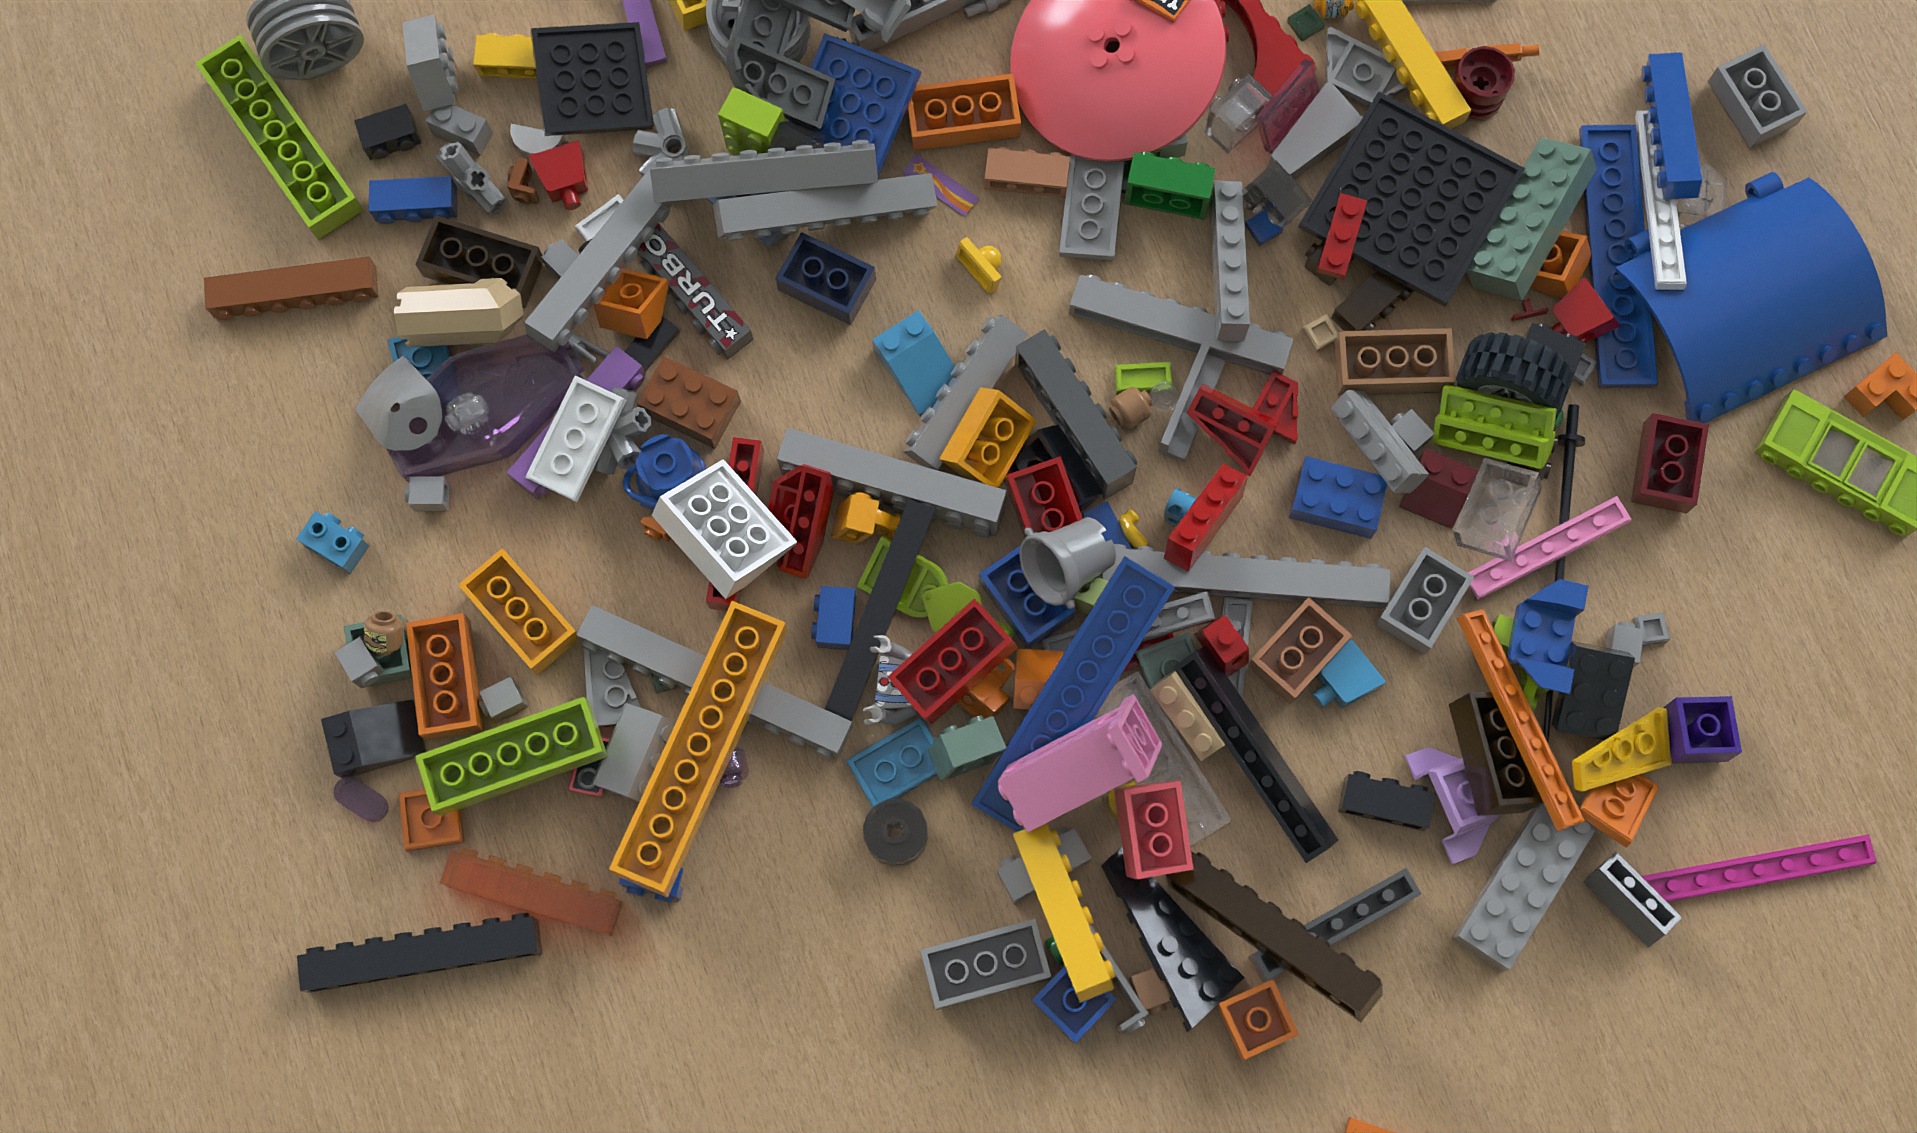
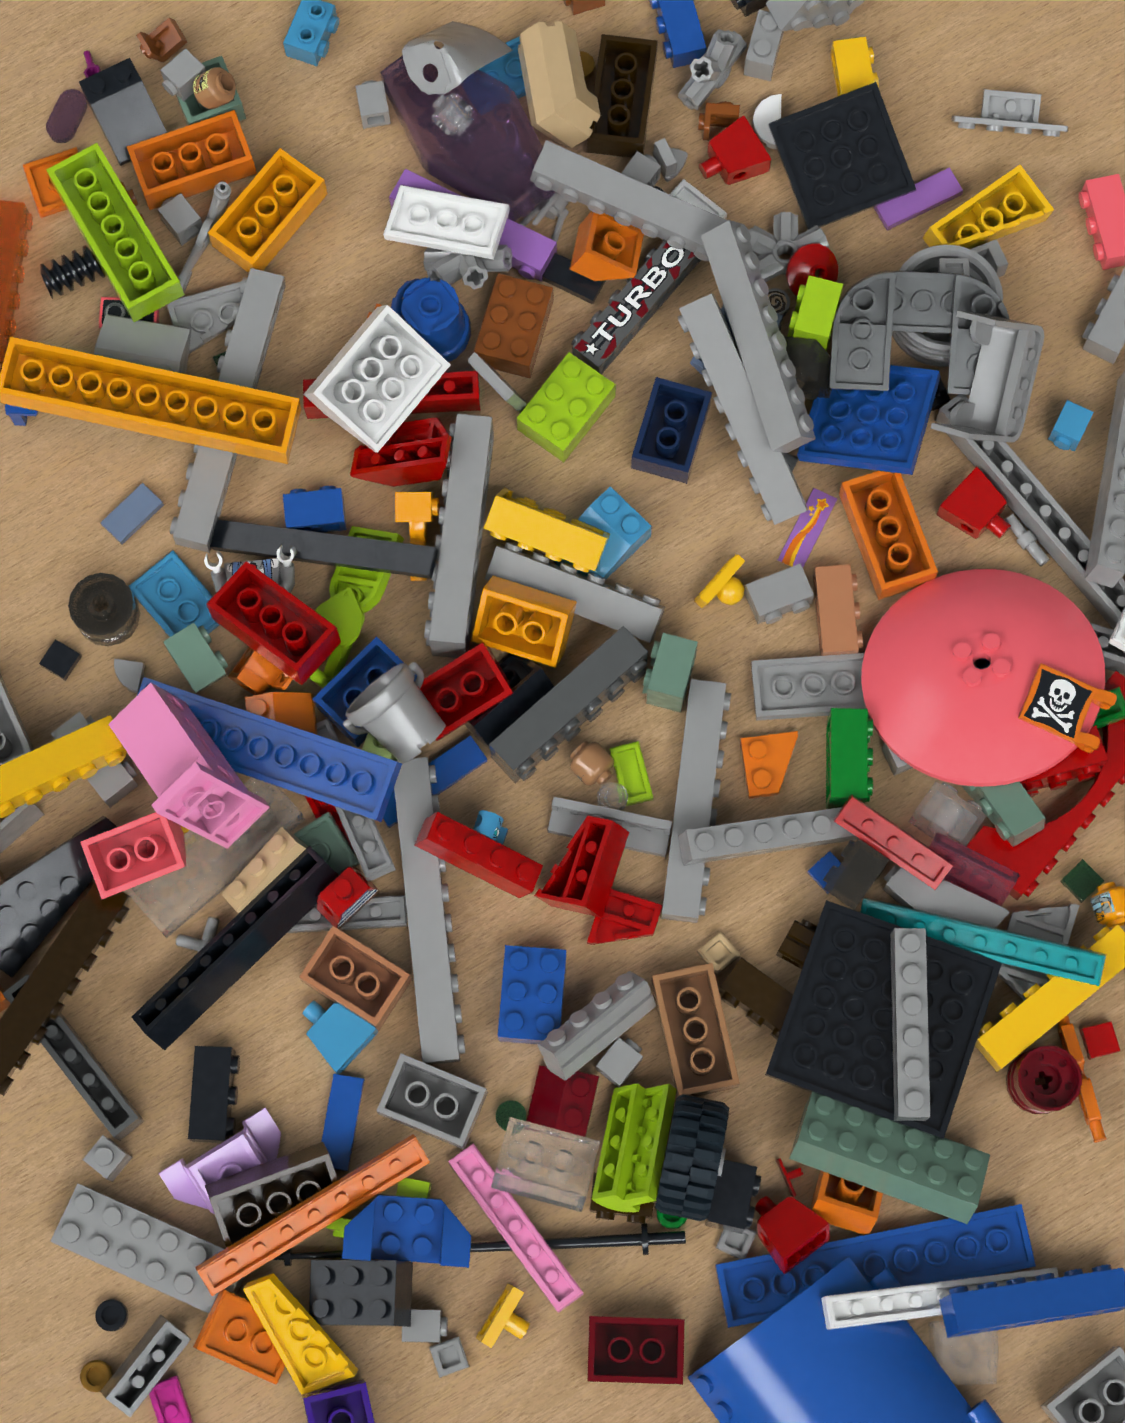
camera: 80 degrees right, 0 degrees up
(305, 688) = (162, 41): none -> dark orange bracket
(320, 764) = (91, 67): none -> magenta hand
(519, 671) = (217, 208): none -> light grey plant
(533, 816) = (71, 271): none -> black piece
(551, 233) = (670, 159): none -> light grey tile
(697, 128) = (807, 261): none -> red dish
(736, 769) = (146, 446): head -> none
(752, 418) = (497, 382): none -> light grey tile
(781, 369) = (566, 407): none -> lime brick
(799, 795) = (132, 513): none -> sand blue tile
(904, 403) = (546, 531): none -> yellow wedge
(935, 886) = (60, 660): none -> black tile
(951, 36) = (975, 507): none -> red torso
(962, 821) = (129, 673): none -> light grey tile
(1001, 217) = (779, 594): none -> light grey brick
(1062, 317) = (672, 669): none -> sand green brick
(1130, 531) = (458, 786): yellow arm -> none
(1153, 259) = (766, 762): none -> orange wing
(1243, 790) = (197, 944): none -> light grey piece
(1247, 54) = (1010, 810): none -> sand green wedge
(1257, 156) = (893, 842): none -> plate
(1342, 236) = (818, 946): red plate -> none
(1359, 93) = (995, 943): none -> teal tile
(1422, 688) = (342, 1119): none -> blue tile
(1427, 171) = (910, 1024): none -> light grey brick
(1433, 908) = (107, 1158): none -> light grey brick
(1441, 538) = (509, 1109): none -> clear green tile
(1446, 36) = (1100, 1040): none -> red tile
(1577, 928) = (111, 1315): none -> black tile
(1624, 574) = (503, 1318): none -> yellow tile
(1630, 951) = (95, 1375): none -> pearl gold tile

